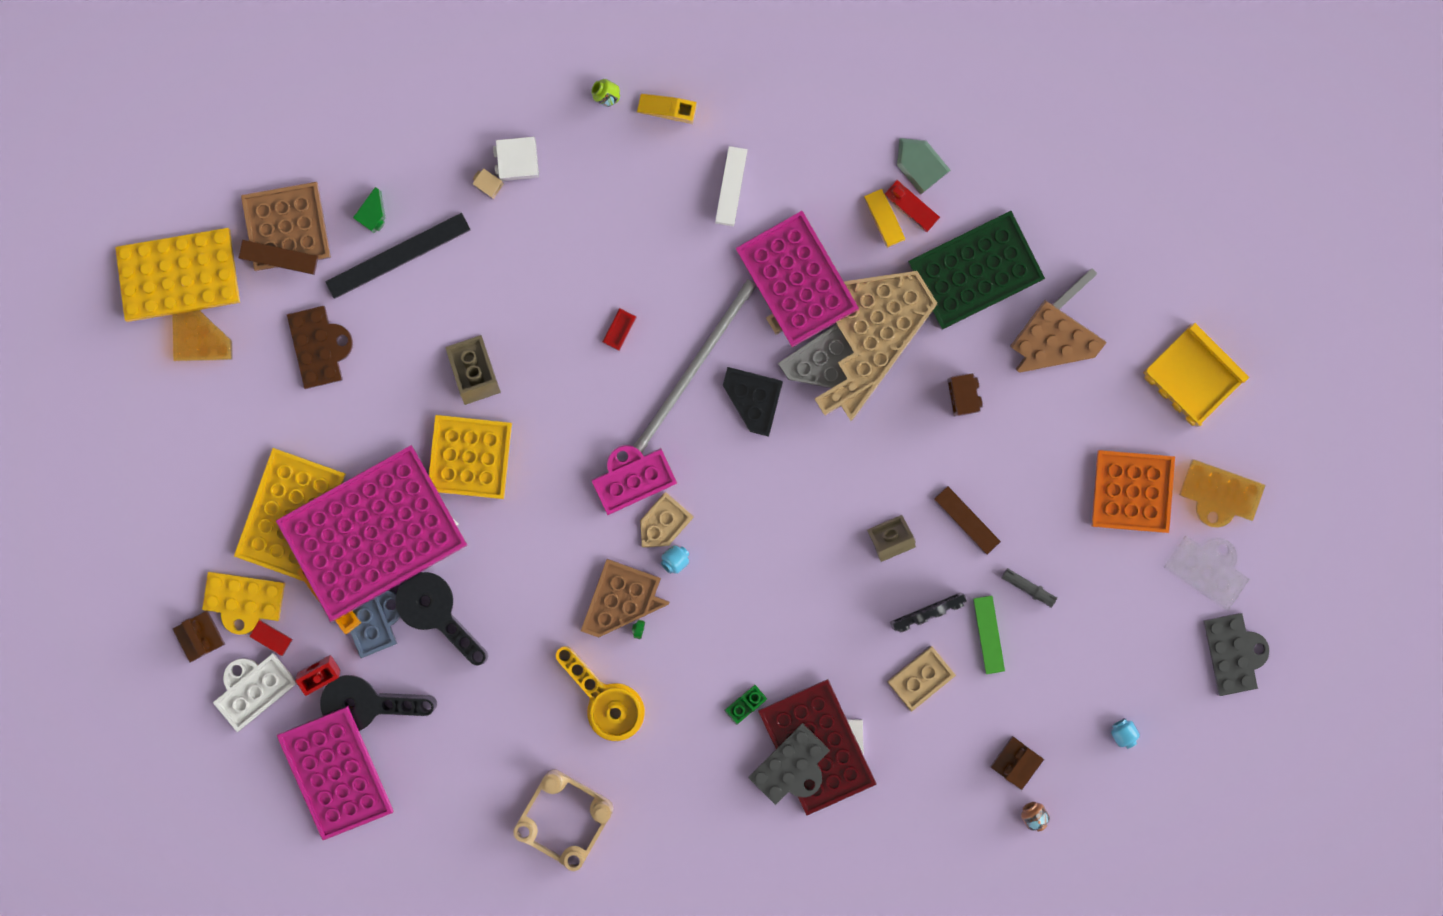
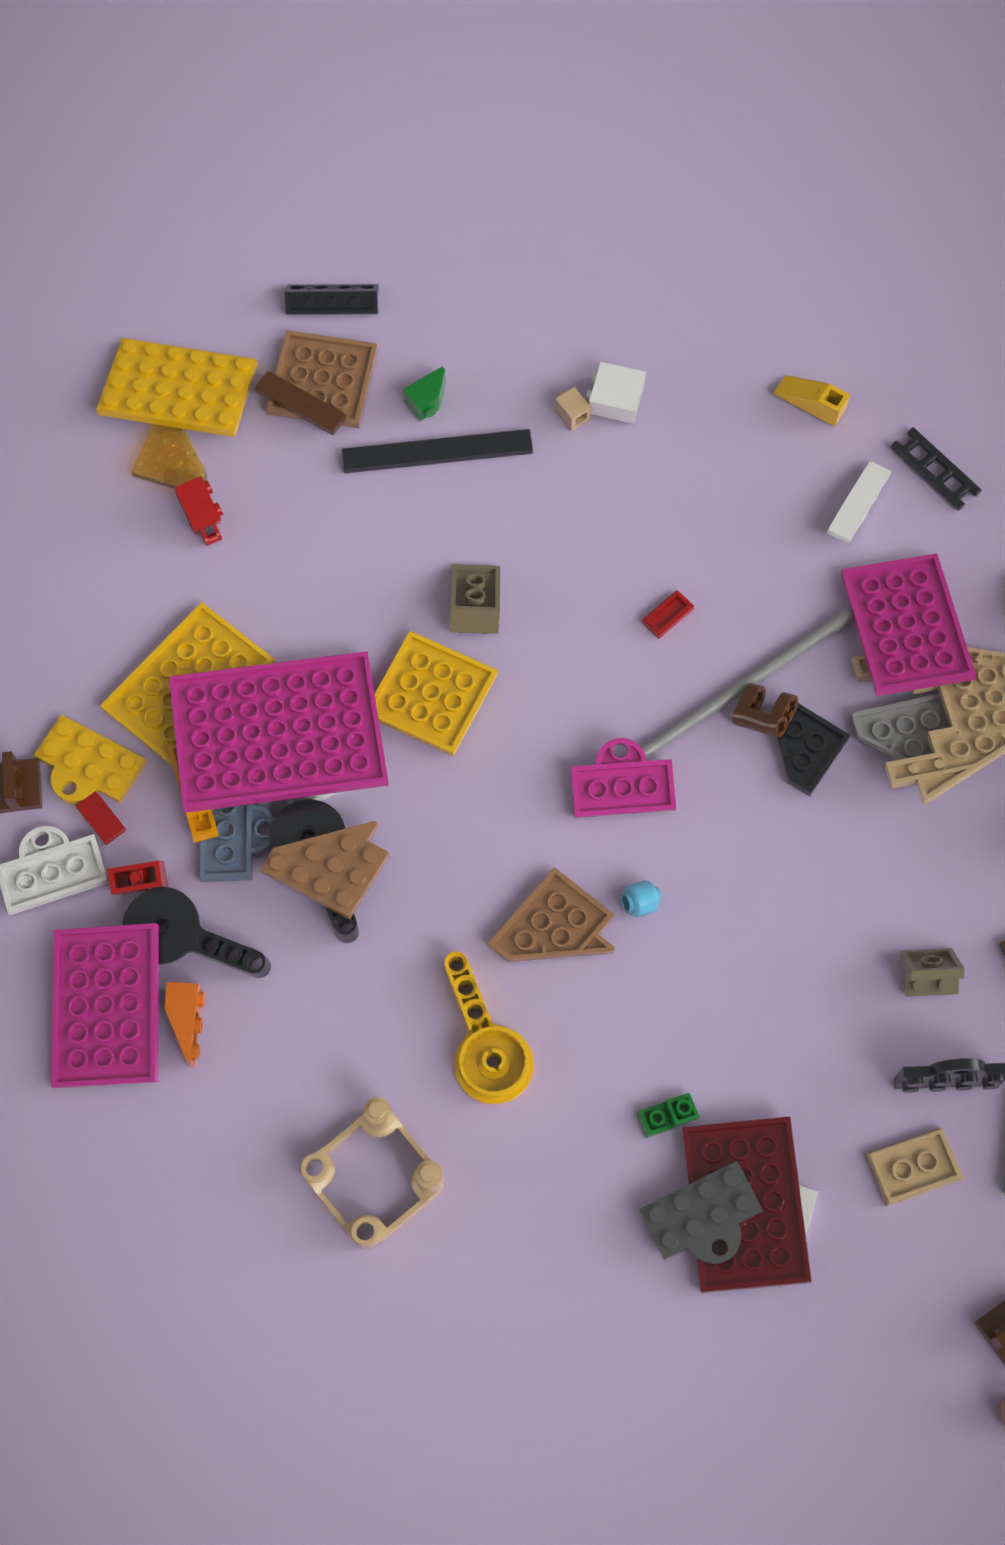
camera: 20 degrees right, 20 degrees down
(239, 373) = (199, 508): none -> red brick
(265, 153) = (331, 299): none -> black fence
(318, 346) = (303, 515): reddish brown plate -> none
(389, 756) = (183, 1010): none -> orange slope
(450, 621) = (330, 867): none -> medium nougat wing
(605, 92) = (745, 358): lime head -> none
(637, 629) = (562, 968): green tile -> none
(663, 522) = (641, 851): tan tile -> none
(712, 394) = (773, 723): none -> reddish brown connector
(785, 144) = (936, 482): none -> black bar

